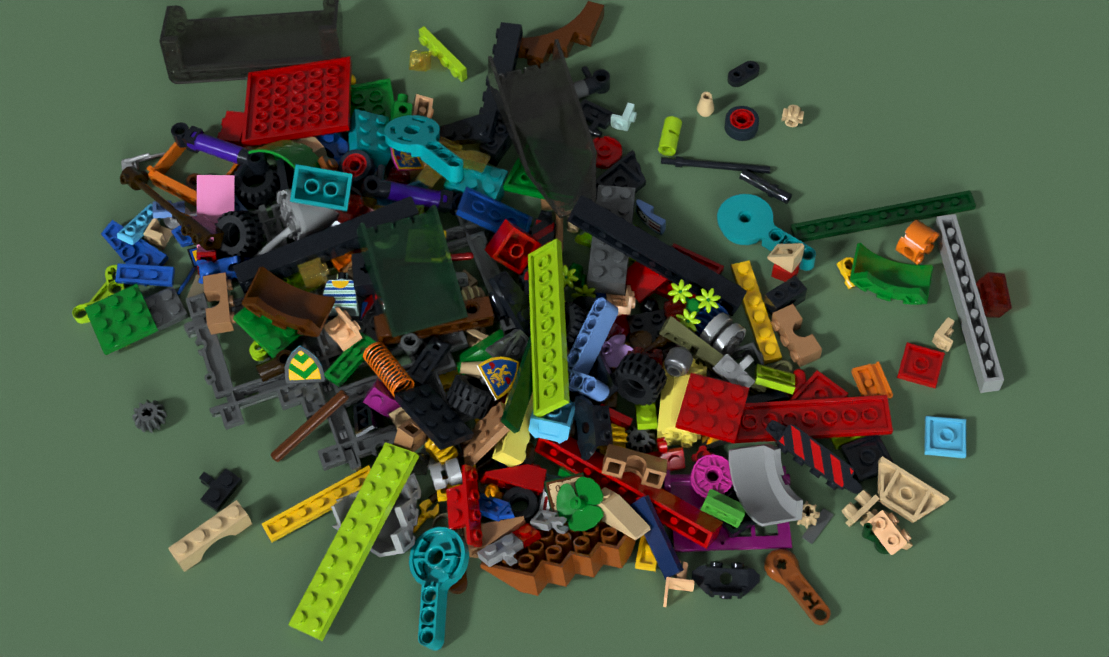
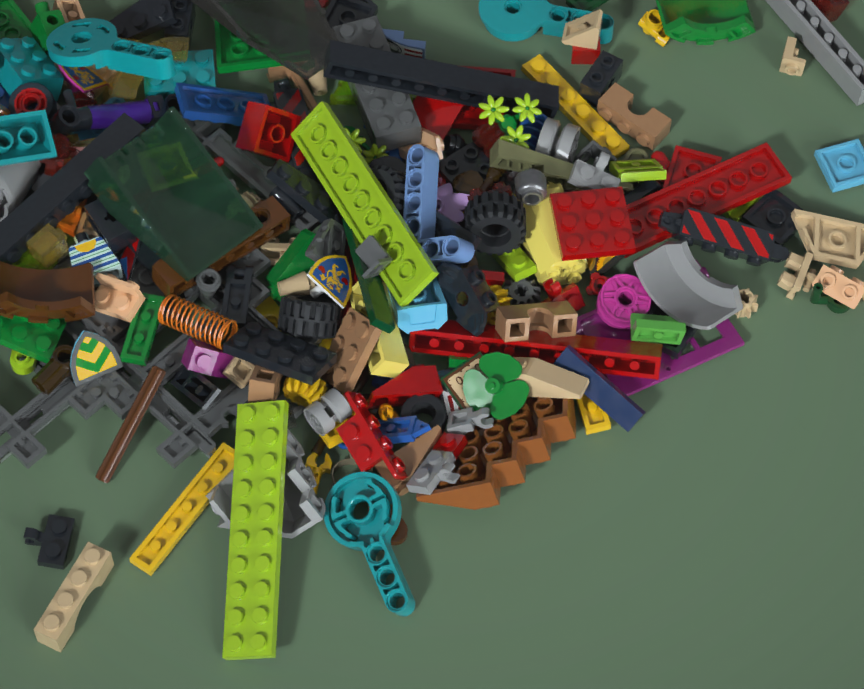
camera: 30 degrees left, 0 degrees up
(532, 371) = (373, 256): none -> dark grey bracket
(679, 582) = (642, 430): light nougat bracket -> none
(742, 582) = (672, 410): black piece -> none
(795, 582) = (767, 380): dark orange beam -> none
(814, 530) = (757, 318): dark grey window -> none
(871, 380) = (738, 135): orange plate -> none
(921, 365) = (781, 100): red tile -> none

